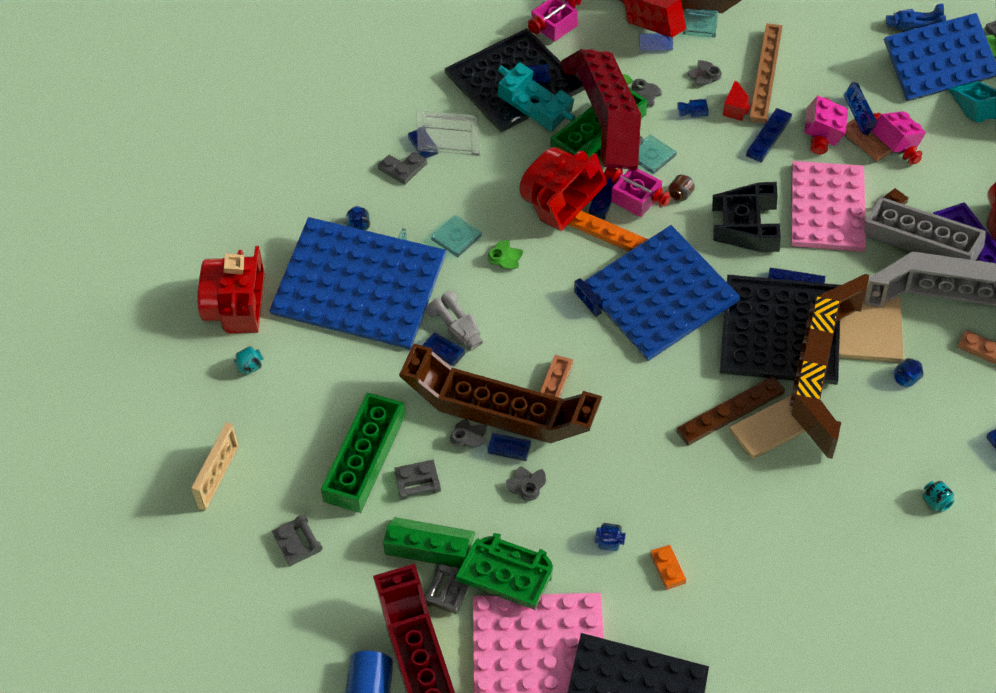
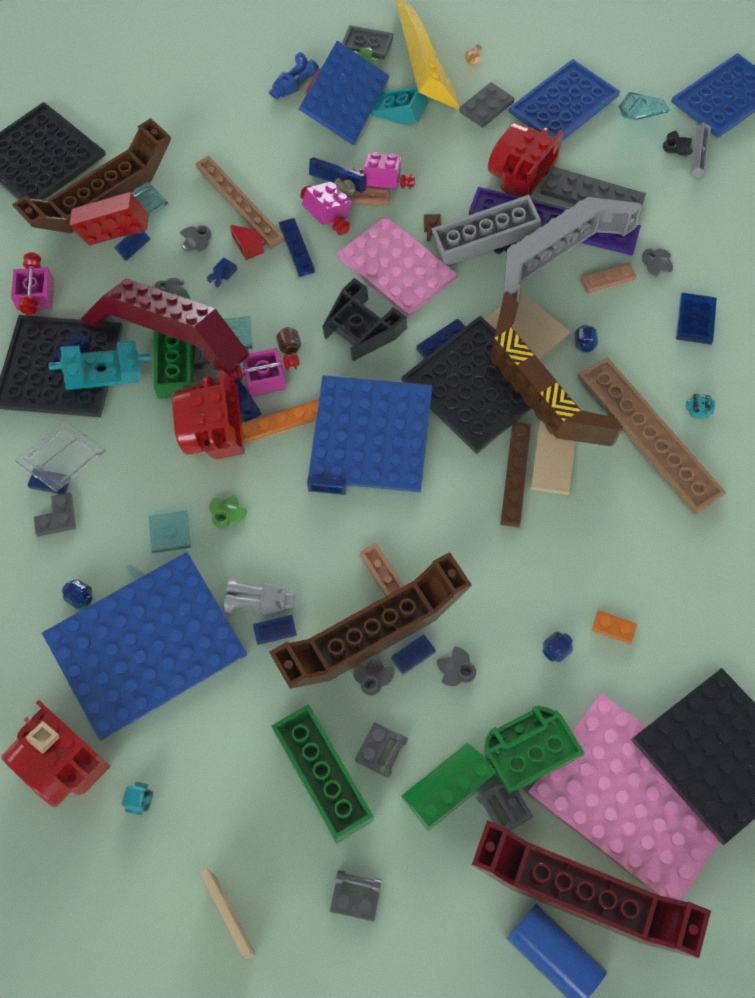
camera: 50 degrees left, 10 degrees up
(853, 122) = (346, 187): none -> olive plate
(869, 480) = (652, 436): none -> medium nougat plate

